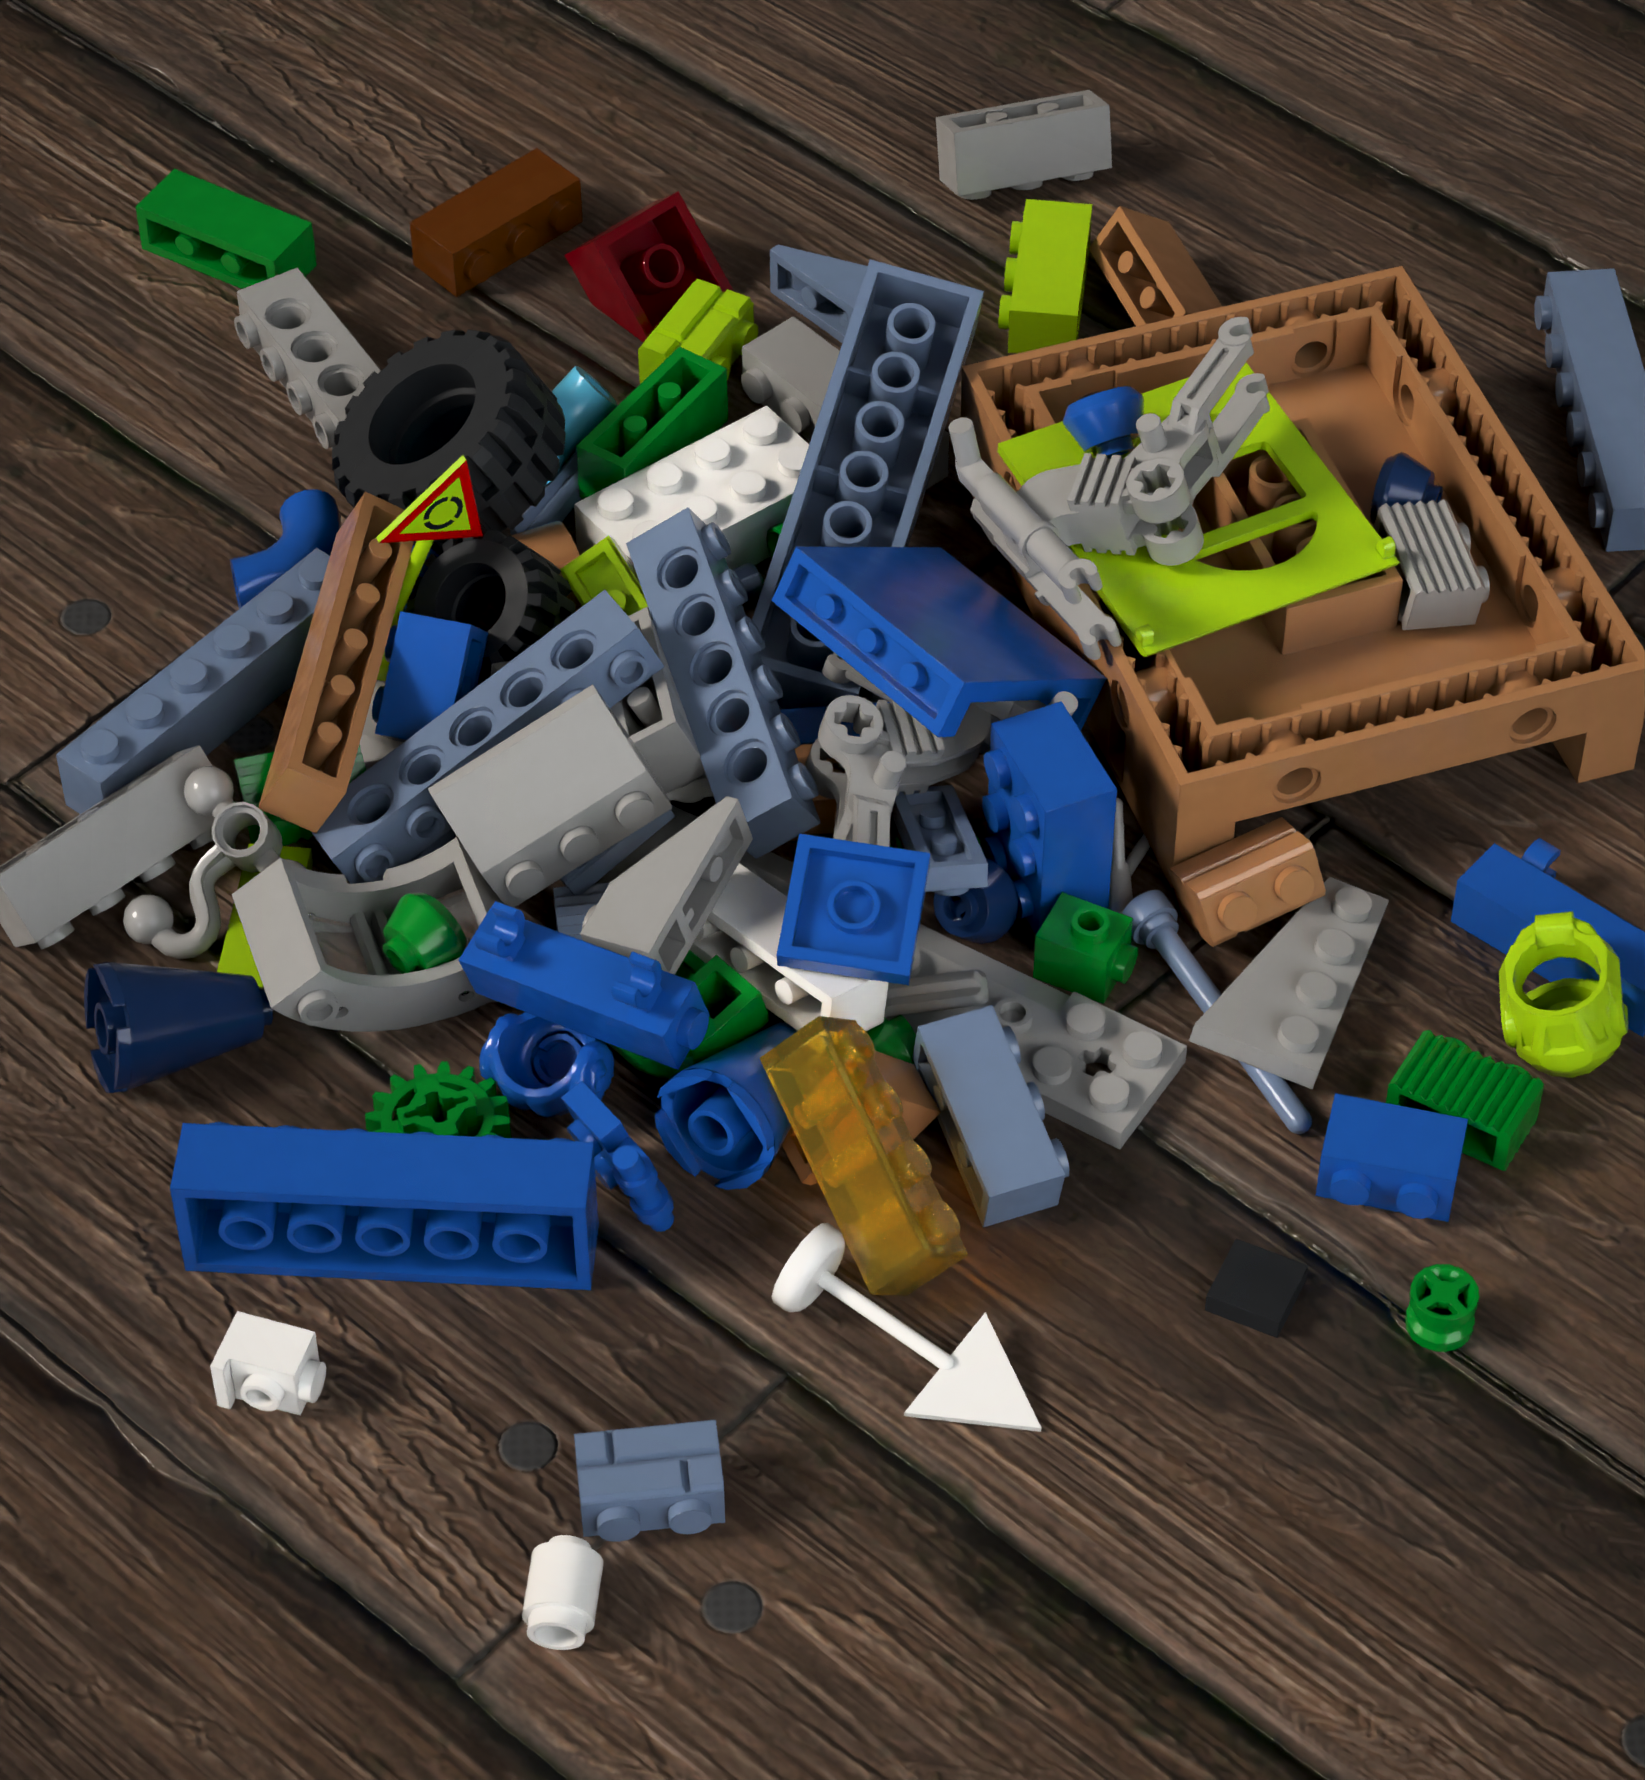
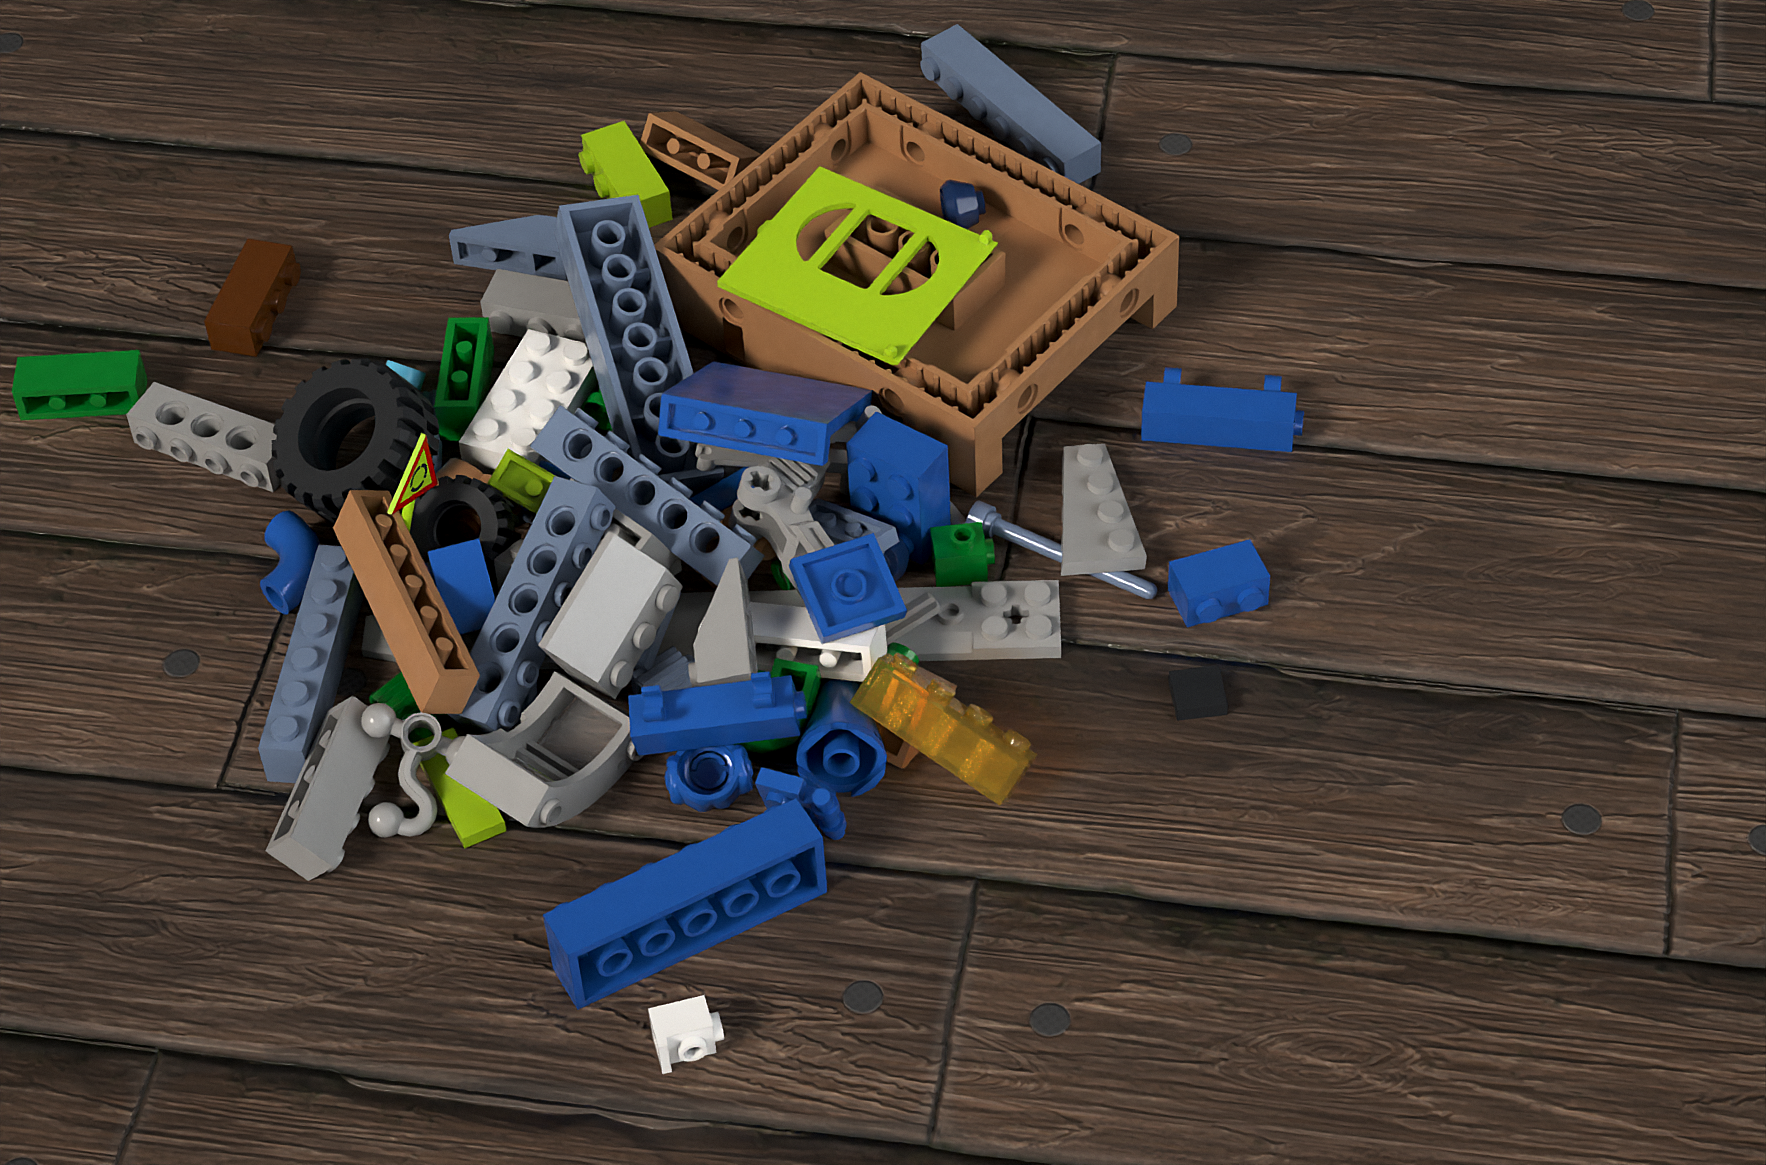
camera: 30 degrees left, 0 degrees up
(167, 1019) = (453, 871): dark blue cone -> none
(422, 934) = (577, 738): green cone -> none
(440, 1105) = (663, 834): green gear -> none
(562, 1592) = (957, 1061): white brick -> none
(645, 265) = (374, 281): dark red slope -> none
(650, 1479) = (956, 973): sand blue brick -> none
(703, 322) = (435, 301): lime brick -> none
(971, 1383) = (1085, 823): white piece -> none
(990, 1115) = (987, 672): sand blue brick -> none
(1024, 144) = (549, 102): light grey brick -> none
(1106, 420) = (779, 237): blue cone -> none
(1119, 500) = (818, 284): light grey piece -> none
(1247, 881) = (1025, 470): medium nougat brick -> none
(1435, 563) = (1024, 244): light grey brick -> none
(1443, 1290) = (1302, 639): green wheel -> none
(1454, 1081) = (1220, 524): green brick -> none
(1569, 1022) = (1256, 461): lime helmet -> none

